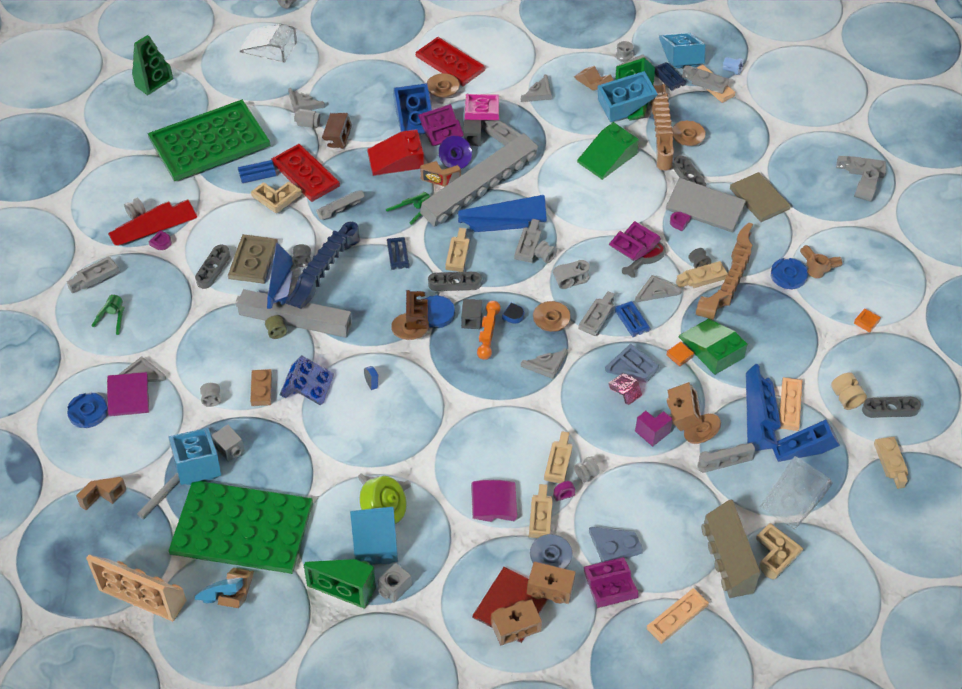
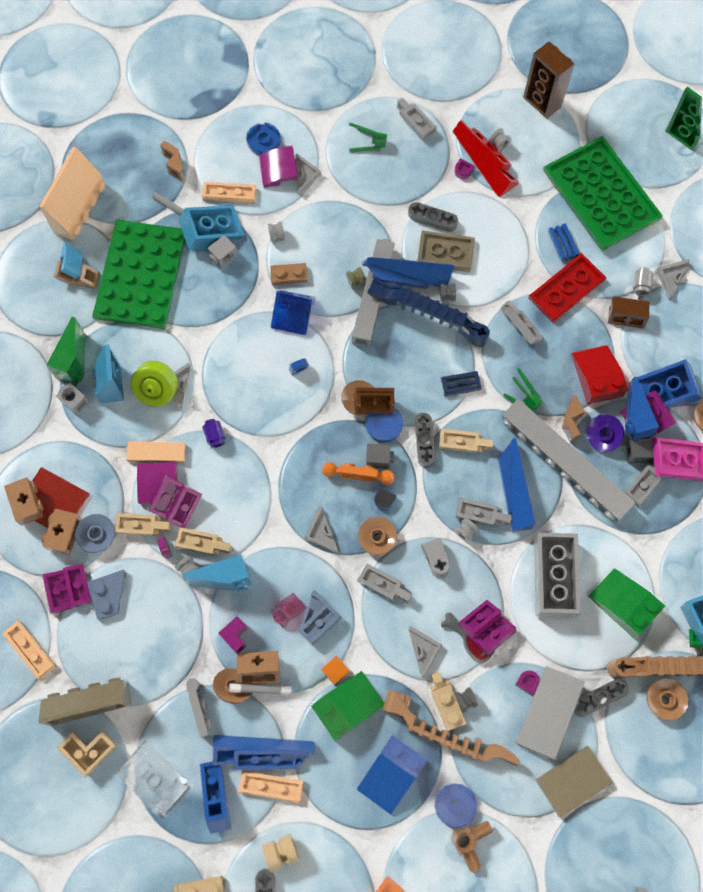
camera: 90 degrees right, 20 degrees up
(87, 153) = (548, 79): none -> reddish brown brick
(150, 442) = (229, 192): none -> light nougat tile
(276, 199) = (522, 262): tan brick -> none
(440, 123) = (639, 416): none -> blue slope
(441, 449) = (214, 433): none -> dark purple brick
(459, 504) = (156, 452): none -> light nougat tile
(517, 479) = (175, 501): none -> magenta slope
(587, 190) = (557, 575): none -> light grey brick
(593, 426) = (225, 575): none -> dark azure slope
(636, 329) = (367, 629): blue tile -> none
(703, 407) = (265, 689): none -> light grey bar
(768, 312) = (391, 774): none -> blue slope

